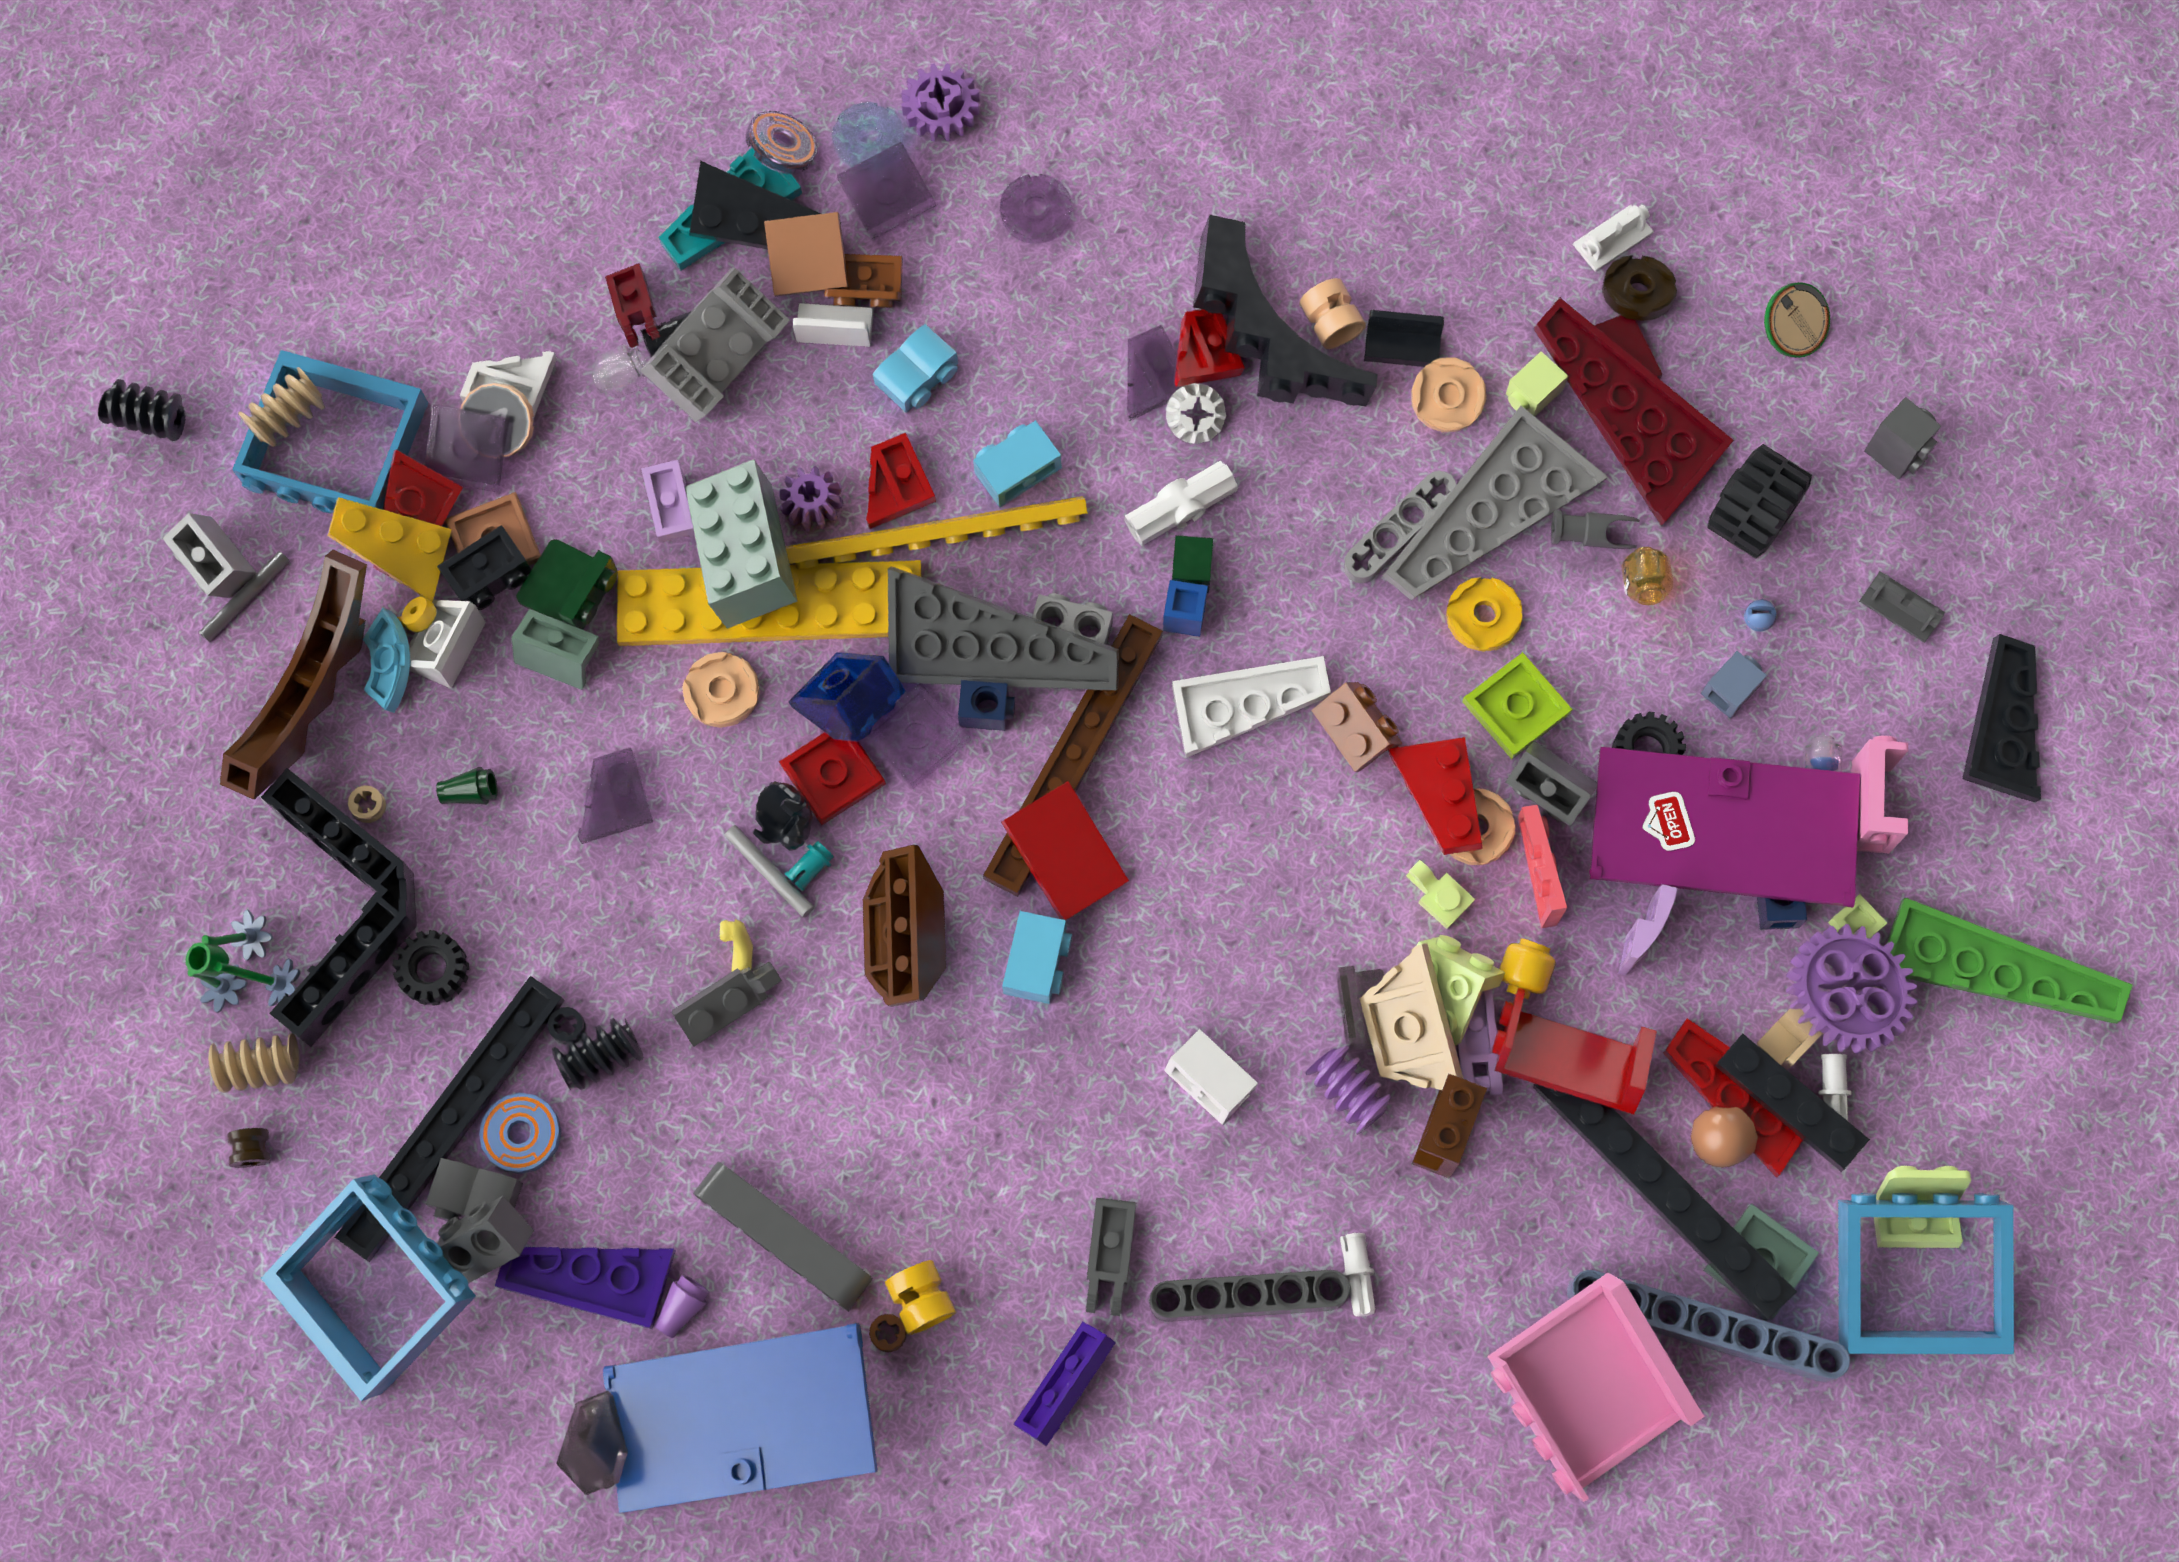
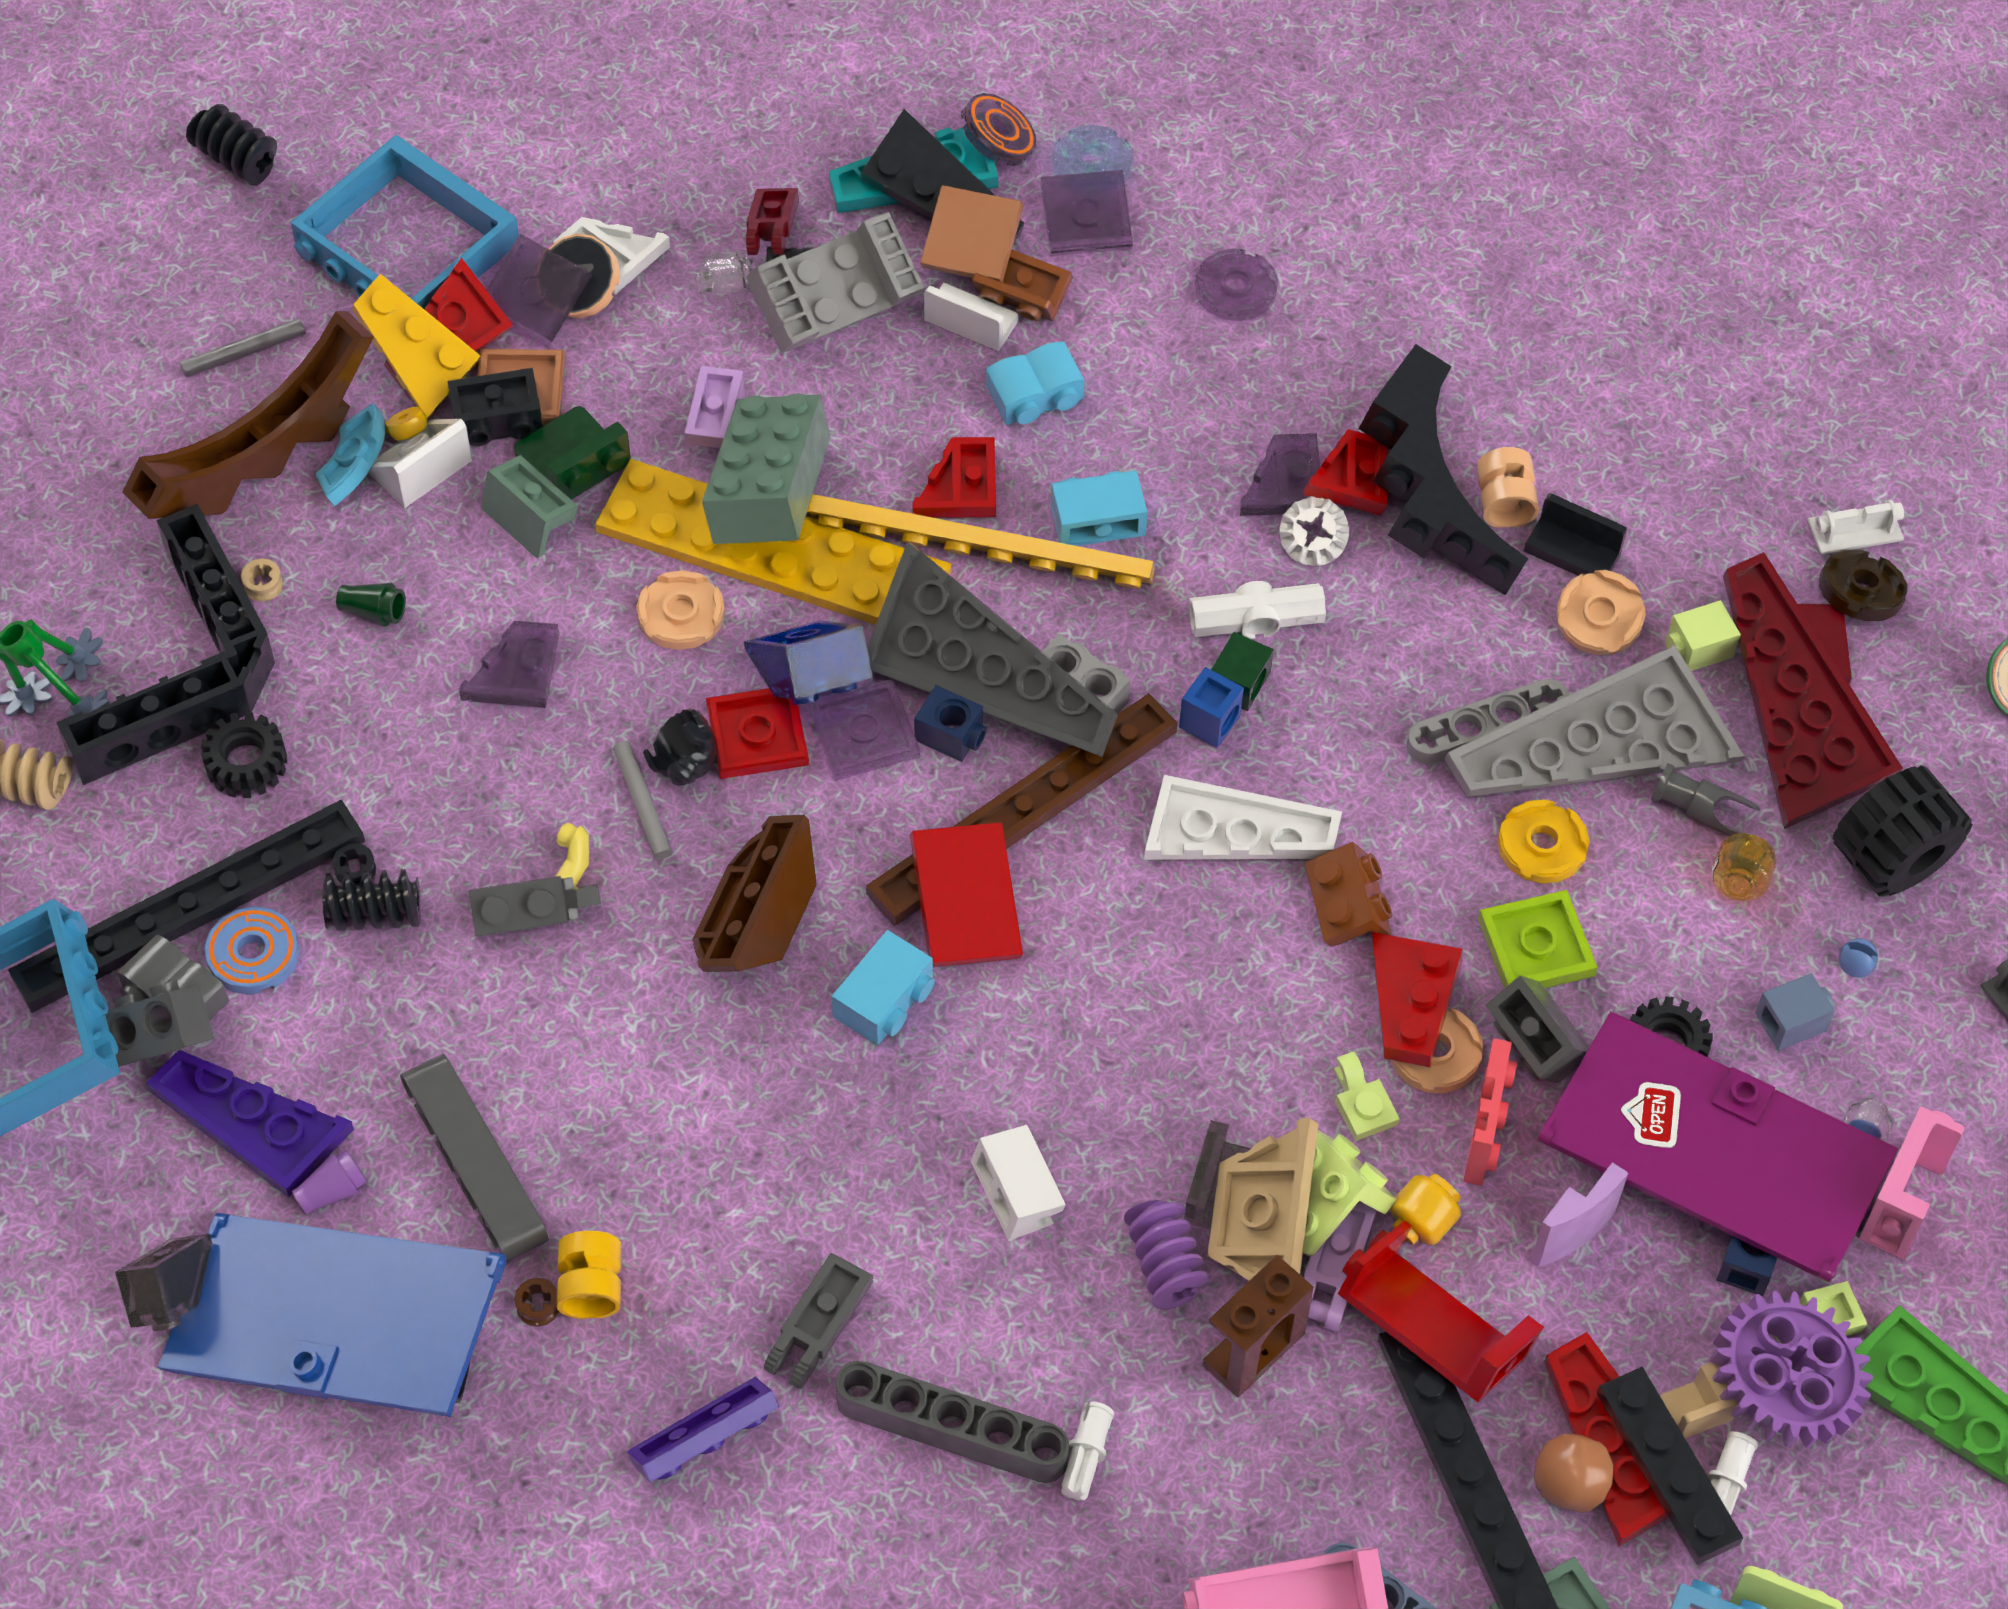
camera: 20 degrees right, 15 degrees down
(209, 555) = (226, 292): light grey brick -> none
(283, 408) = (369, 180): tan piece -> none
(812, 863) = (687, 808): teal pin -> none
(822, 506) = (864, 463): medium lavender gear -> none
(958, 97) = (1201, 156): medium lavender gear -> none

